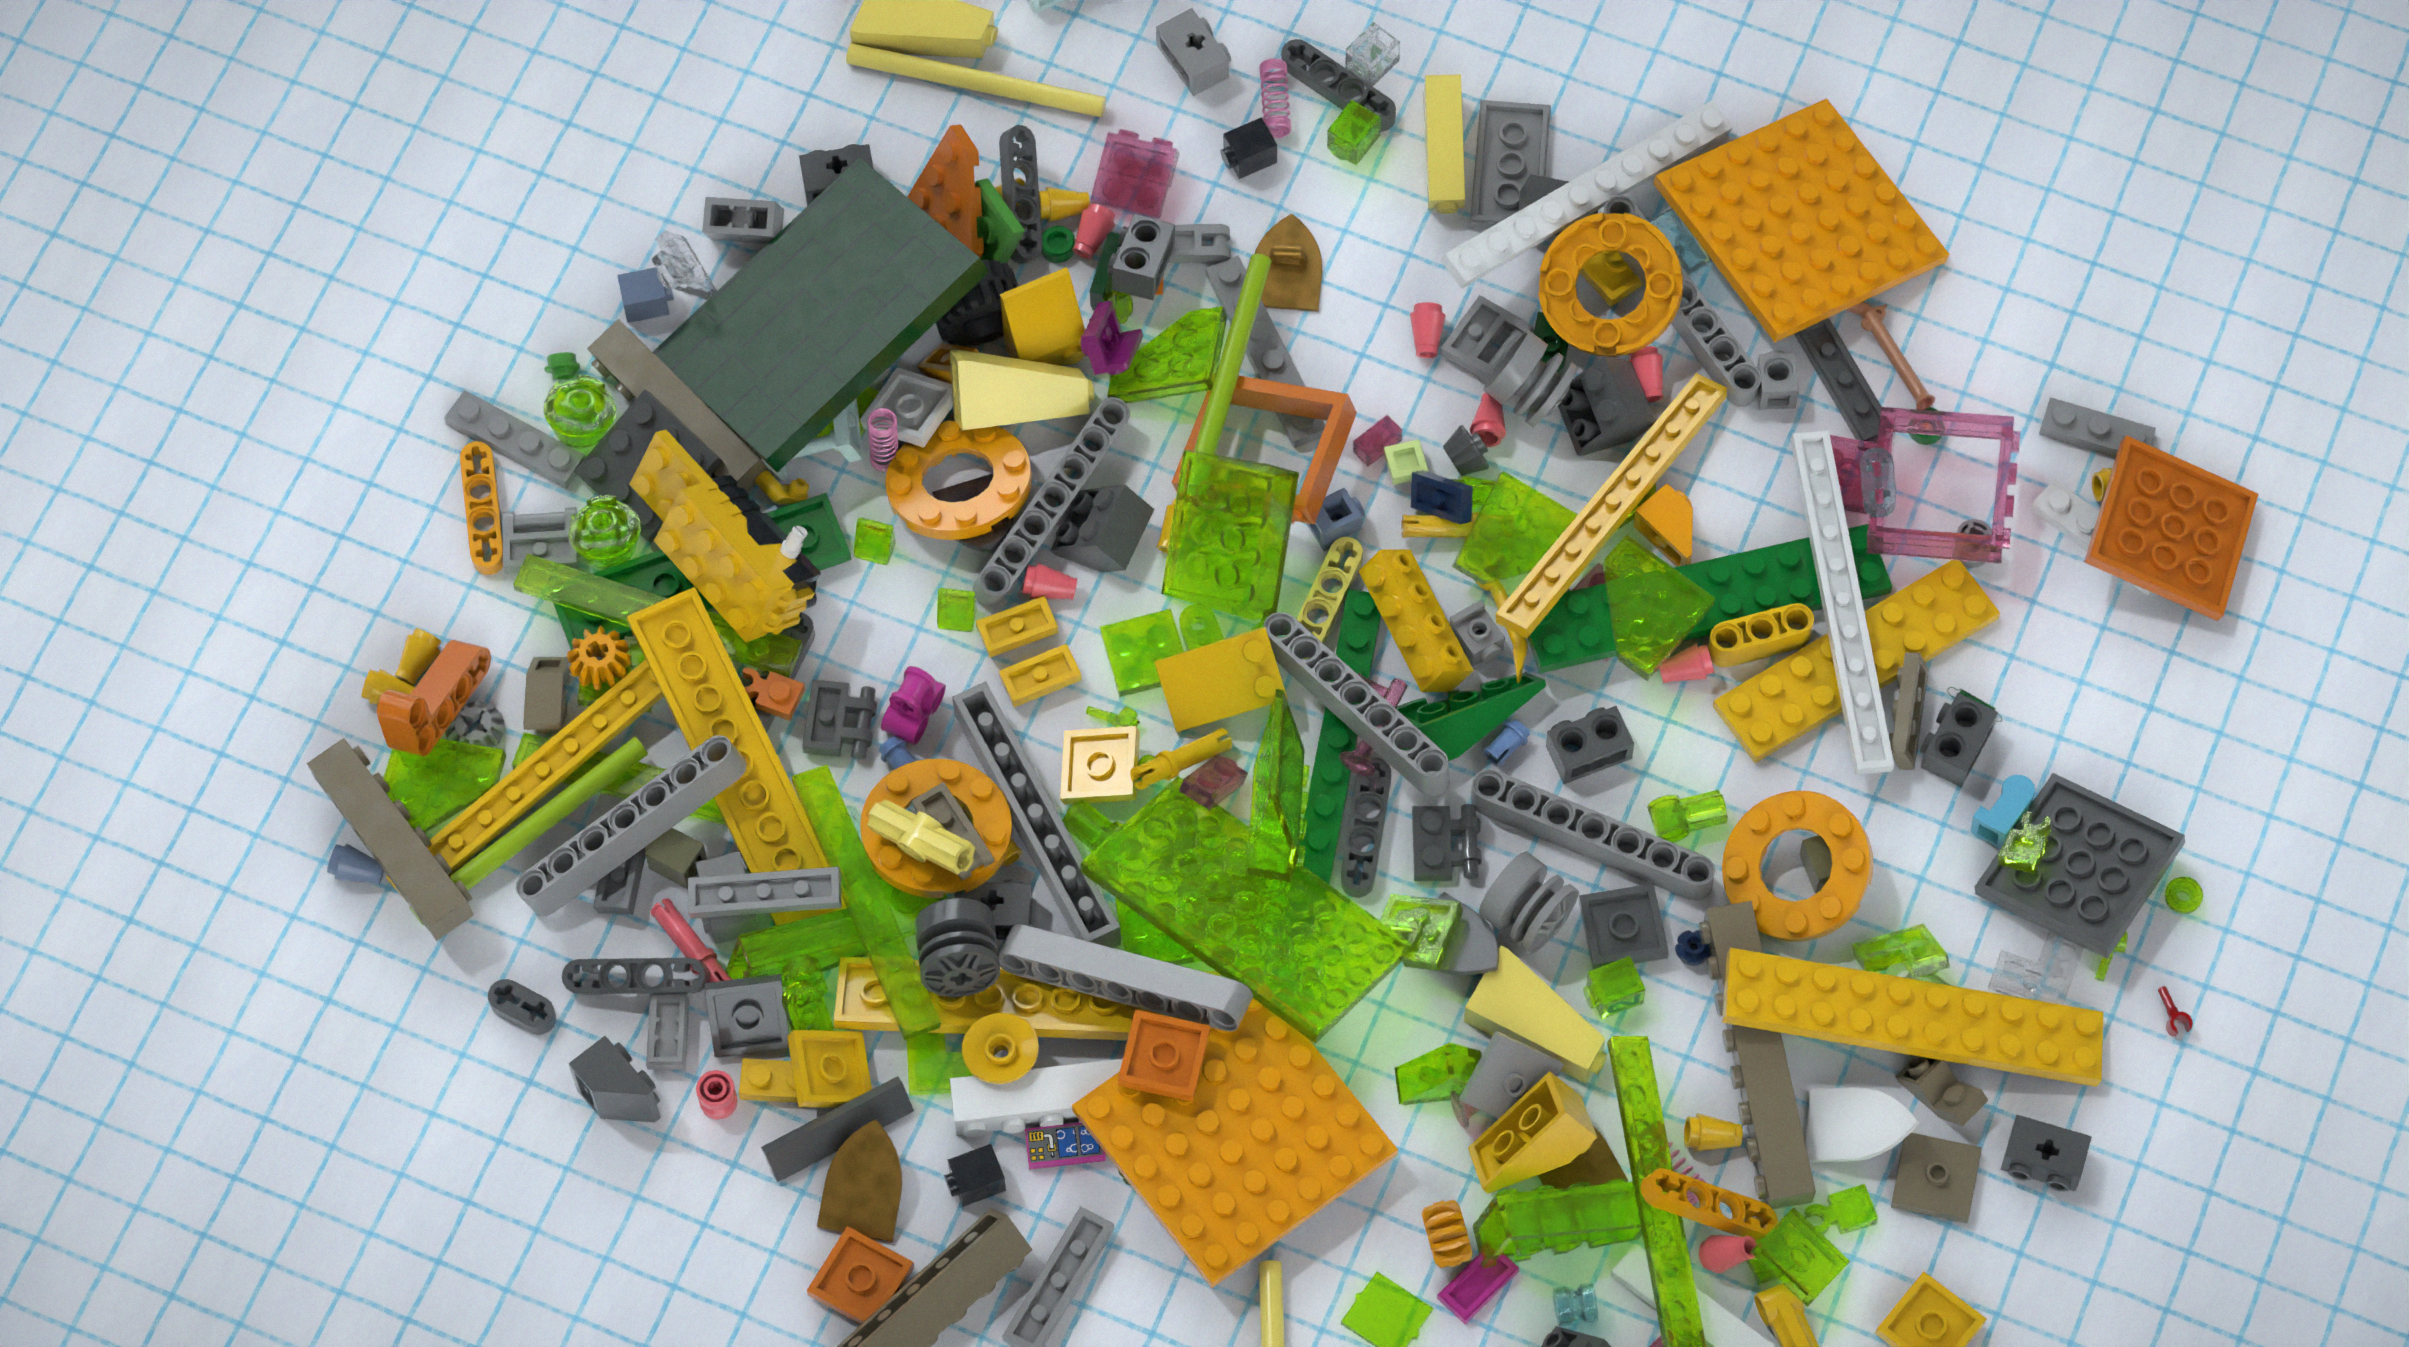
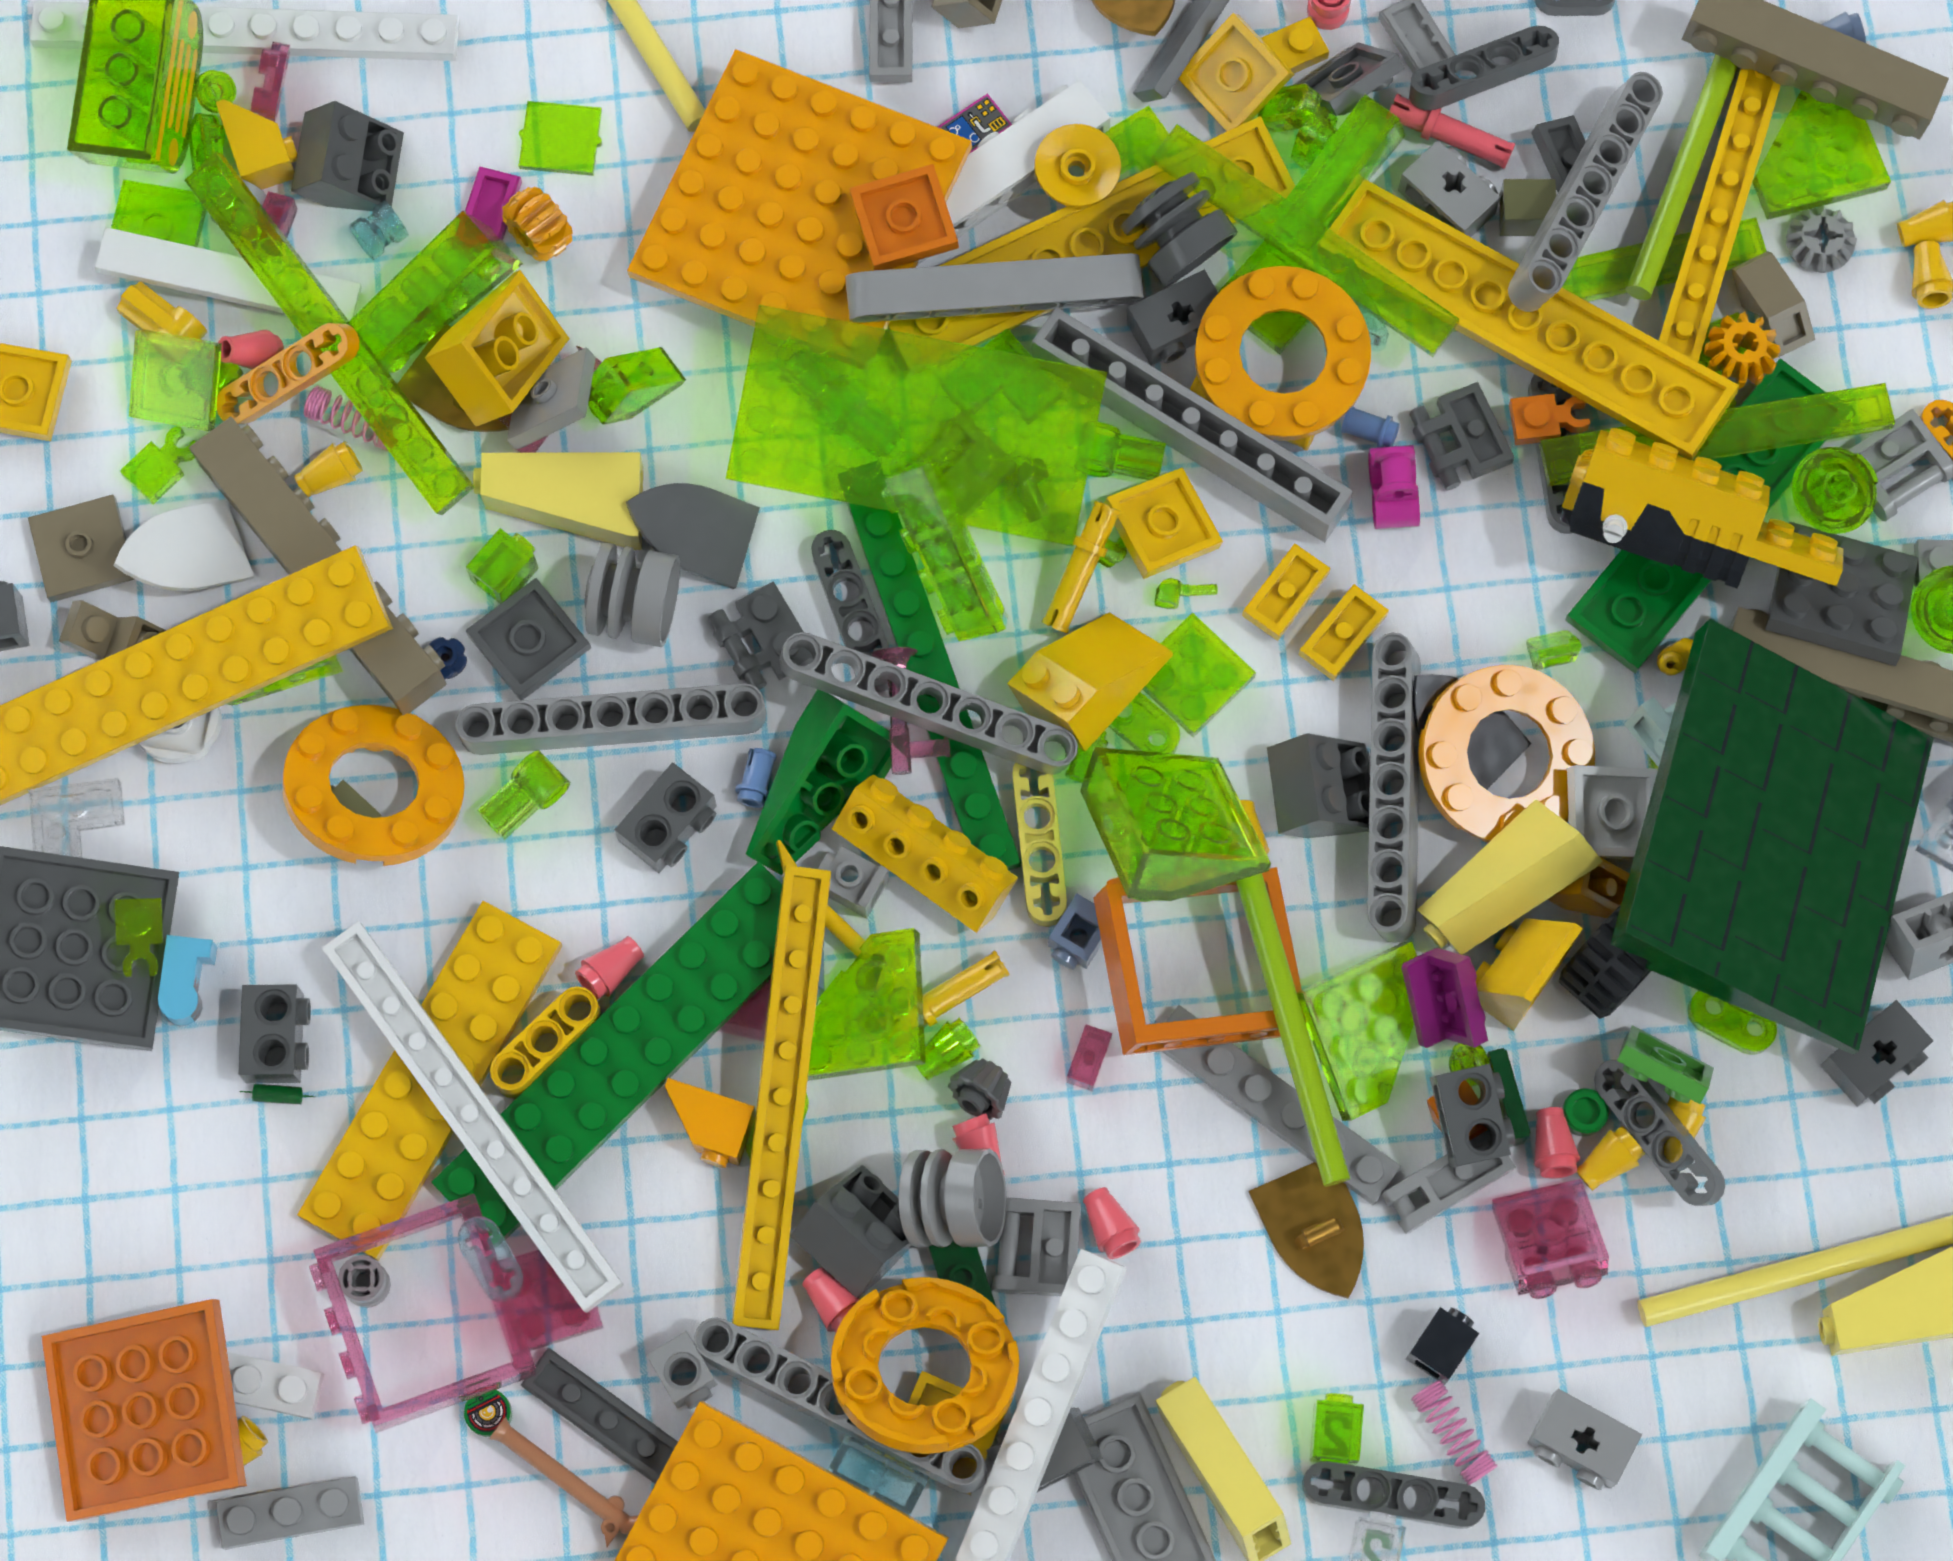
camera: 150 degrees right, 10 degrees up
(420, 719) = (1874, 221): orange beam -> none
(764, 892) = (1405, 185): light grey plate -> none
(890, 433) = (1620, 734): bright pink piece -> none
(921, 836) = (1279, 297): light yellow piece -> none
(944, 808) = (1257, 337): dark tan plate -> none
(948, 188) = (1743, 1084): orange plate -> none
(956, 609) = (1419, 618): clear neon green slope -> none
(975, 1175) = (1031, 54): black brick -> none
(1047, 582) = (1341, 697): coral cone -> none
(1213, 781) = (1033, 560): plate -> none
(1403, 460) = (1043, 1045): yellowish green plate -> none
(1427, 923) = (722, 527): clear neon green plate -> none
(1441, 497) = (964, 1004): dark blue plate -> none
(1649, 606) = (673, 983): clear neon green plate -> none
(1908, 710) = (342, 1037): dark tan plate -> none
(1911, 946) = (219, 767): clear neon green plate -> none

